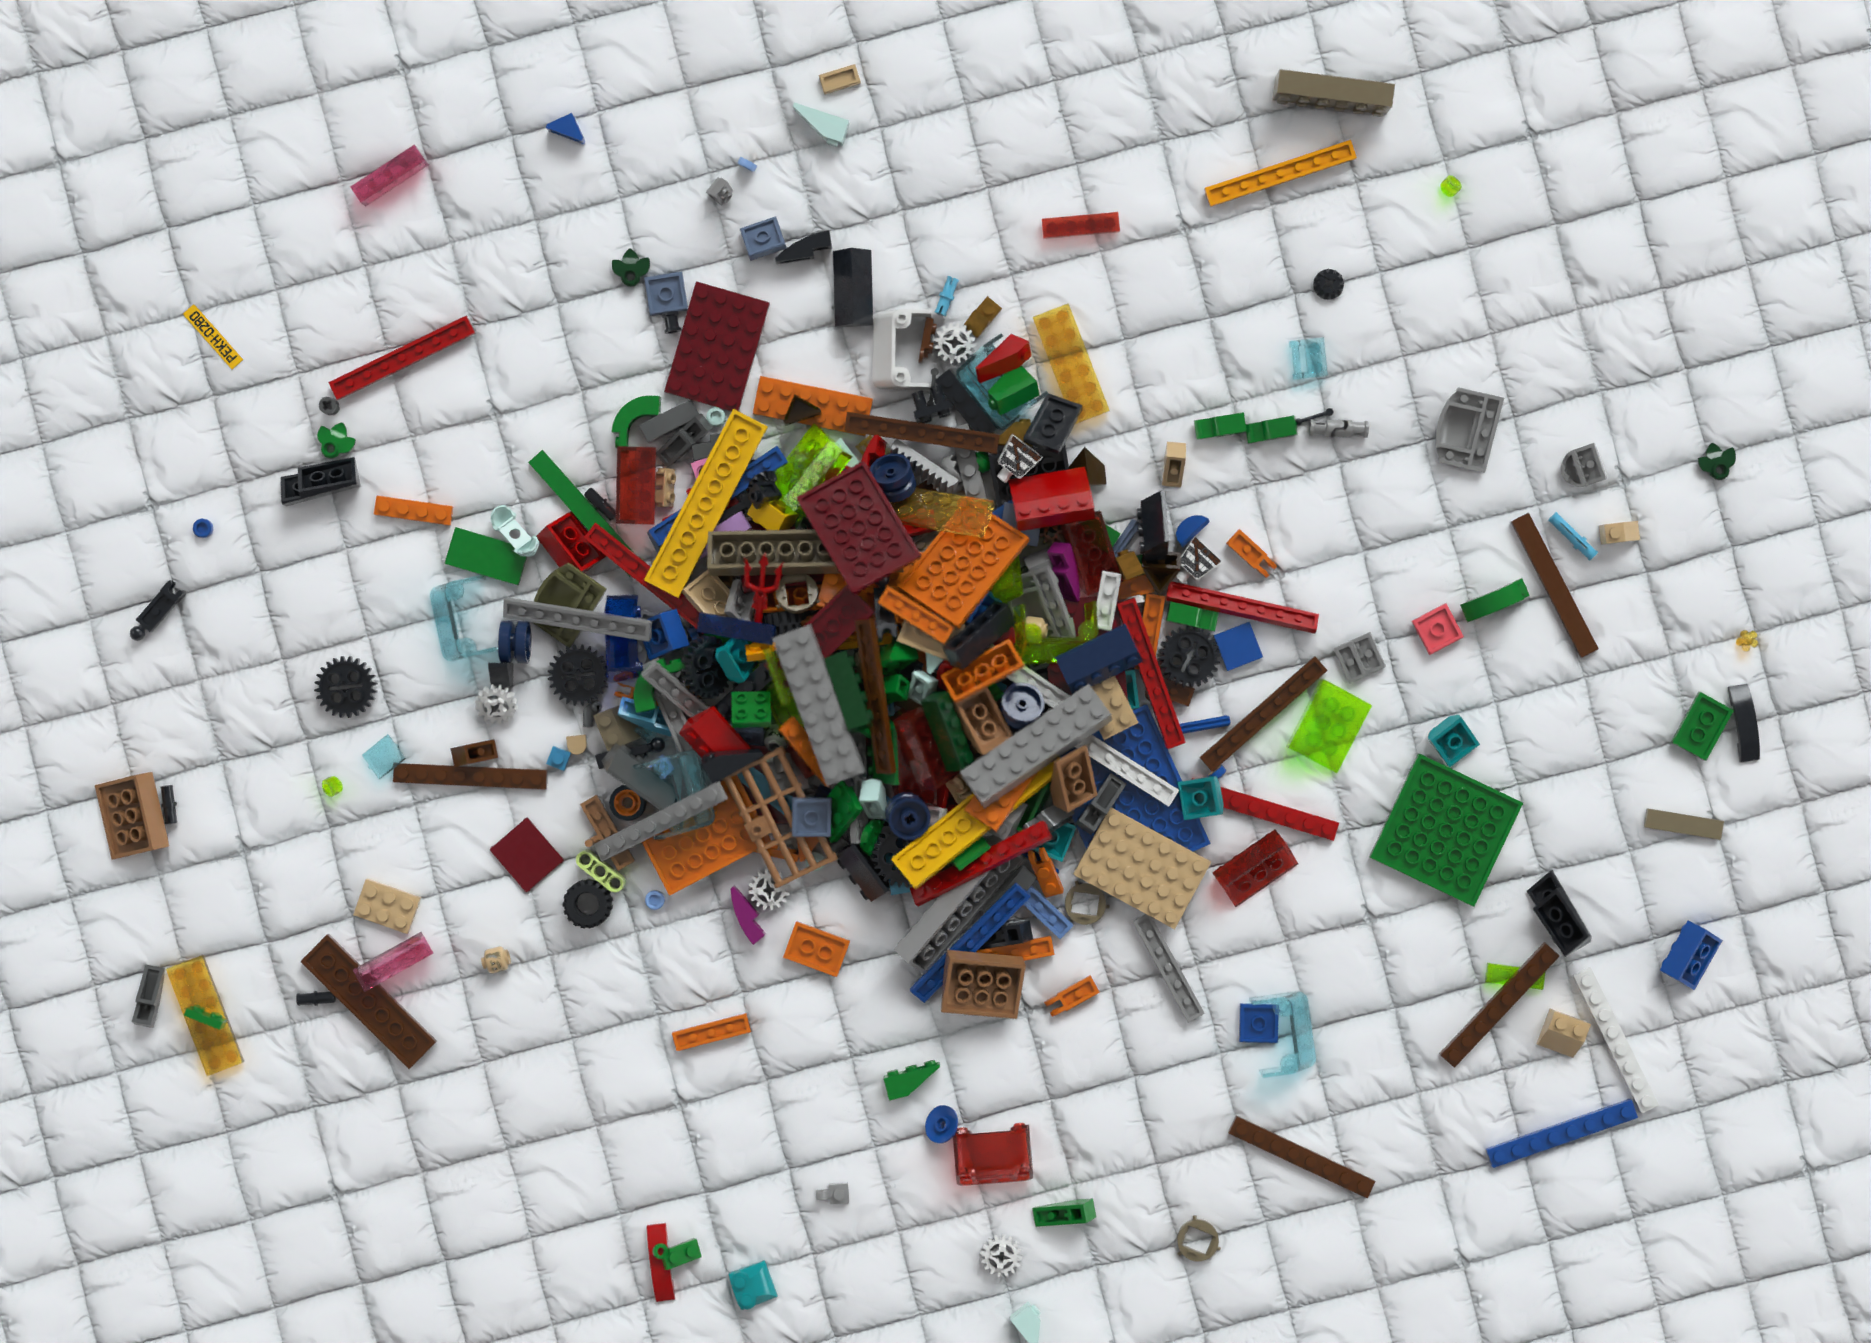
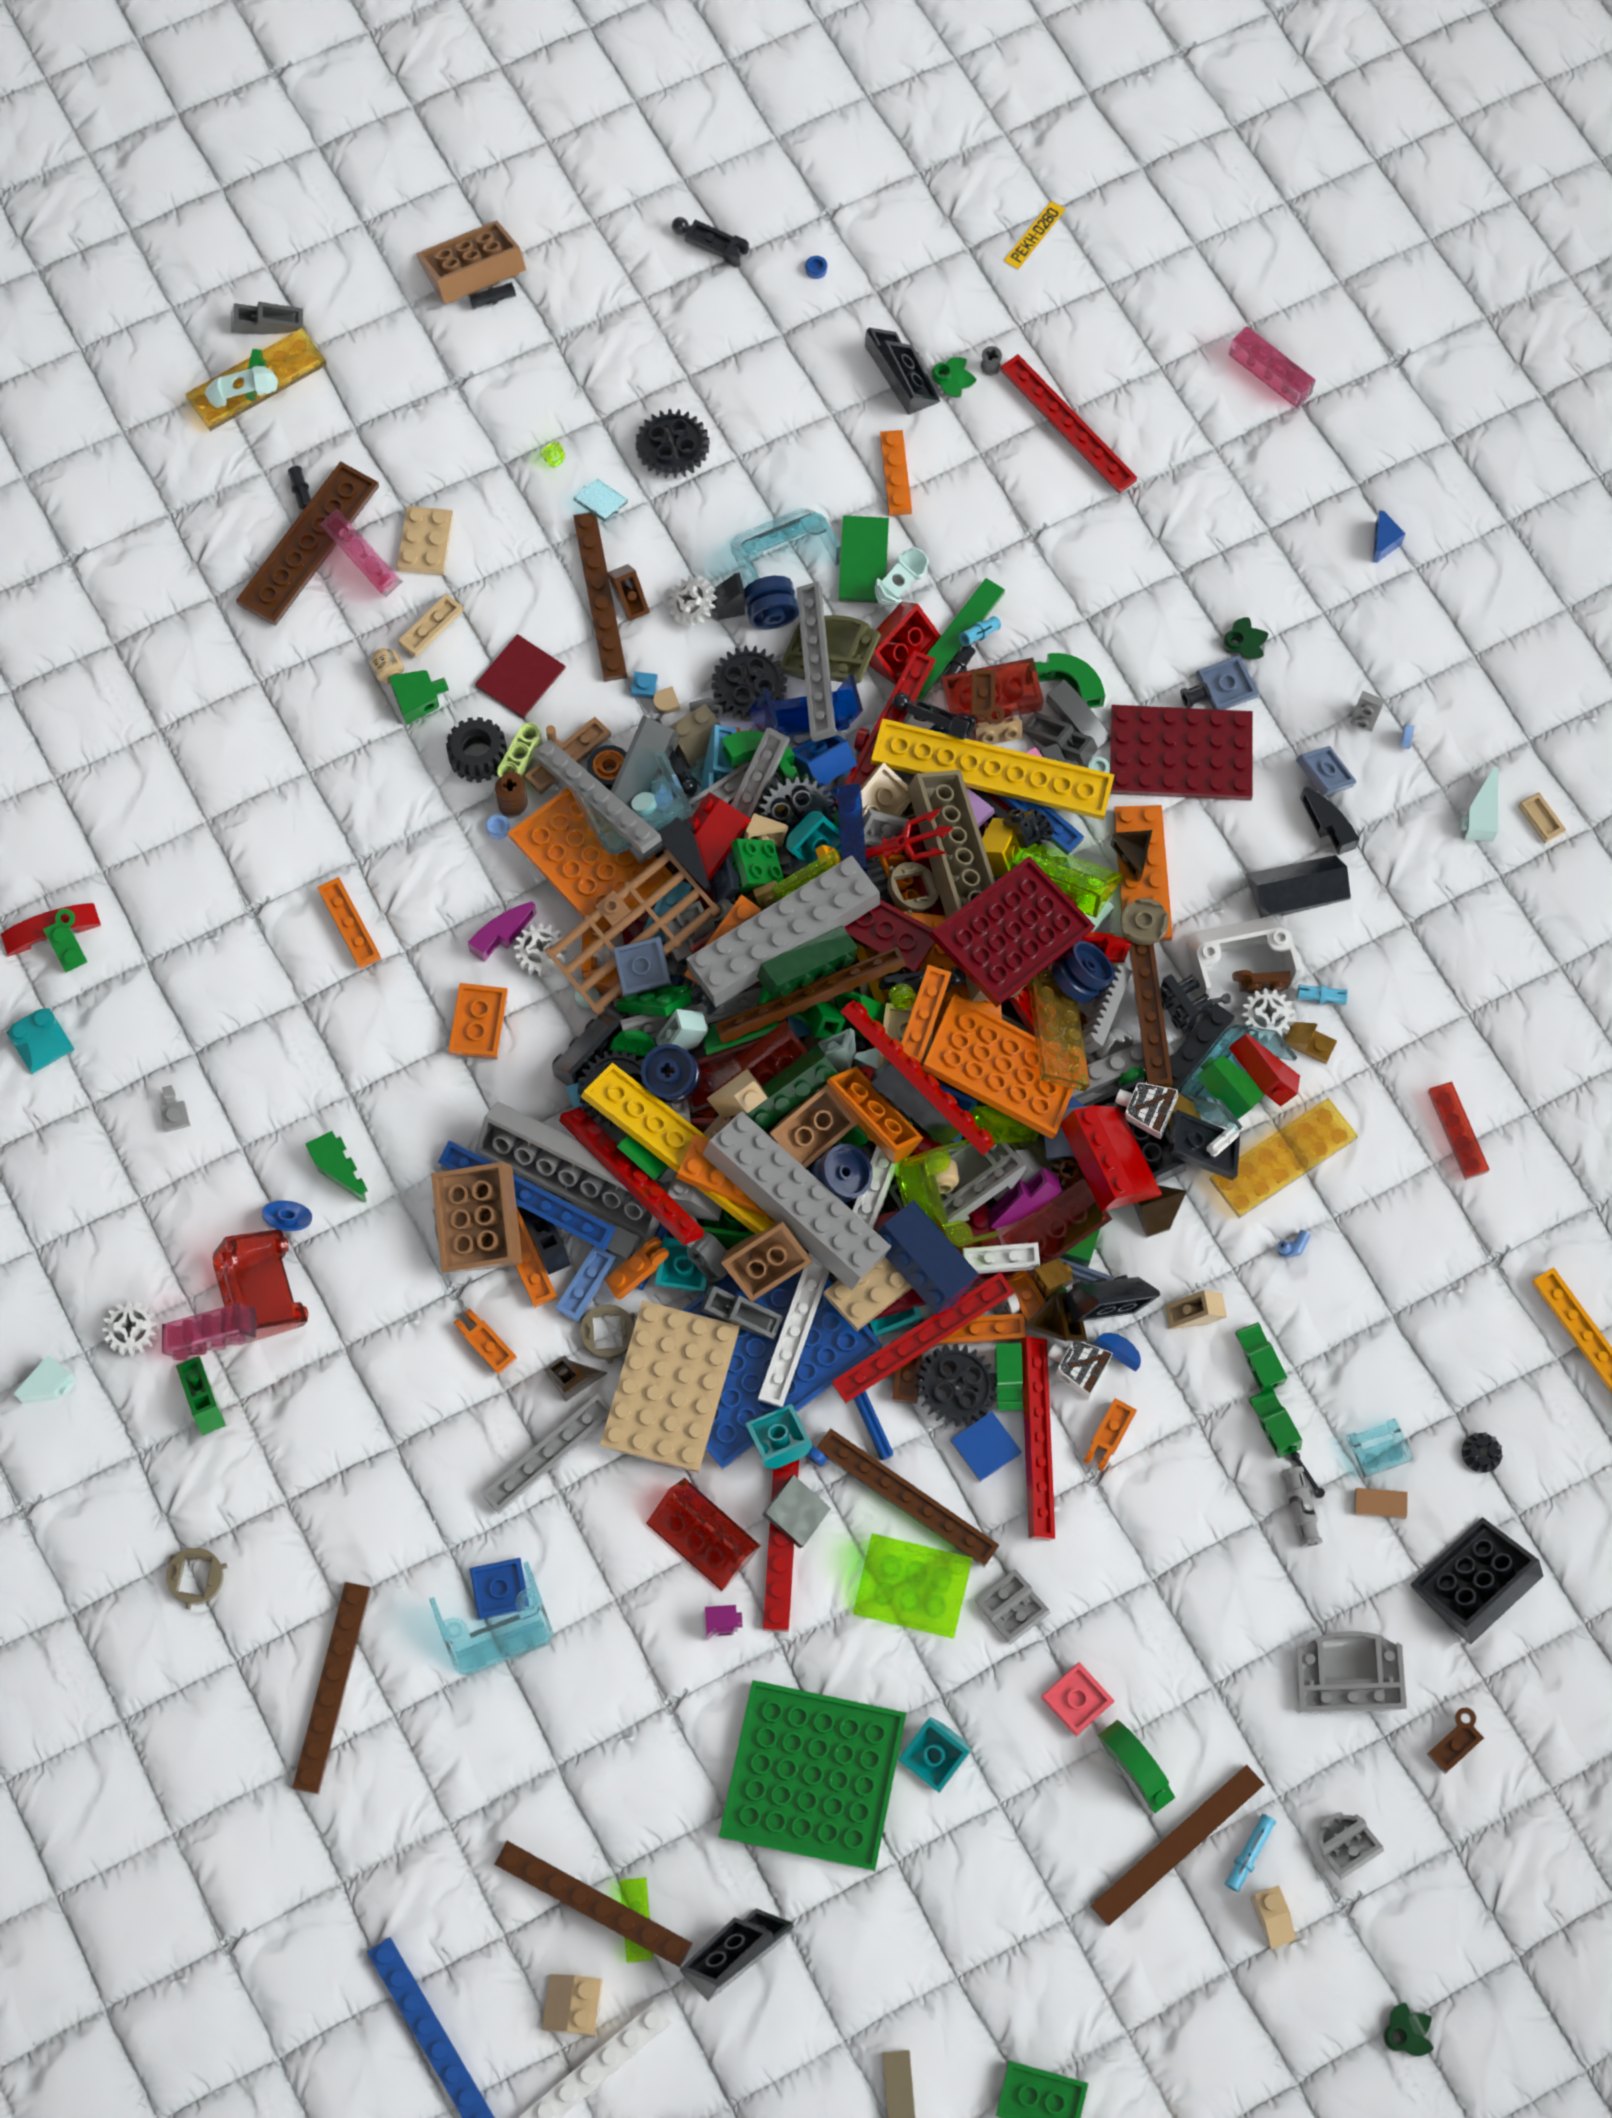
camera: 70 degrees right, 20 degrees down
(215, 1015) = (256, 378): none -> light aqua piece
(467, 917) = (430, 625): none -> tan plate
(526, 940) = (416, 693): none -> green torso
(576, 480) = (979, 631): none -> medium azure pin
(630, 890) = (511, 794): none -> reddish brown piece
(643, 494) = (984, 696): none -> reddish brown hinge
(649, 597) = (861, 739): none -> red tile
(650, 535) = (958, 725): none -> black plate
(672, 784) = (643, 803): none -> light aqua tile
(721, 697) = (766, 829): none -> tan slope
(777, 709) = (764, 895): none -> medium nougat plate
(865, 423) = (1143, 928): none -> dark tan tile
(899, 627) = (902, 996): none -> clear neon green tile
(945, 769) = (738, 1095): none -> tan slope
(967, 633) = (926, 1084): none -> red plate
(1024, 1199) = (209, 1331): none -> clear pink brick
(1055, 410) = (1222, 1141): none -> white piece
(1113, 937) = (571, 1376): none -> dark brown slope
(1142, 376) = (1295, 1247): none -> medium blue arm
(1256, 797) = (796, 1511): none -> tile
(1321, 868) = (722, 1620): none -> magenta window
(1348, 369) = (1380, 1503): none -> medium nougat tile
(1421, 317) = (1478, 1579): none -> black slope
(1532, 367) = (1457, 1742): none -> reddish brown hinge

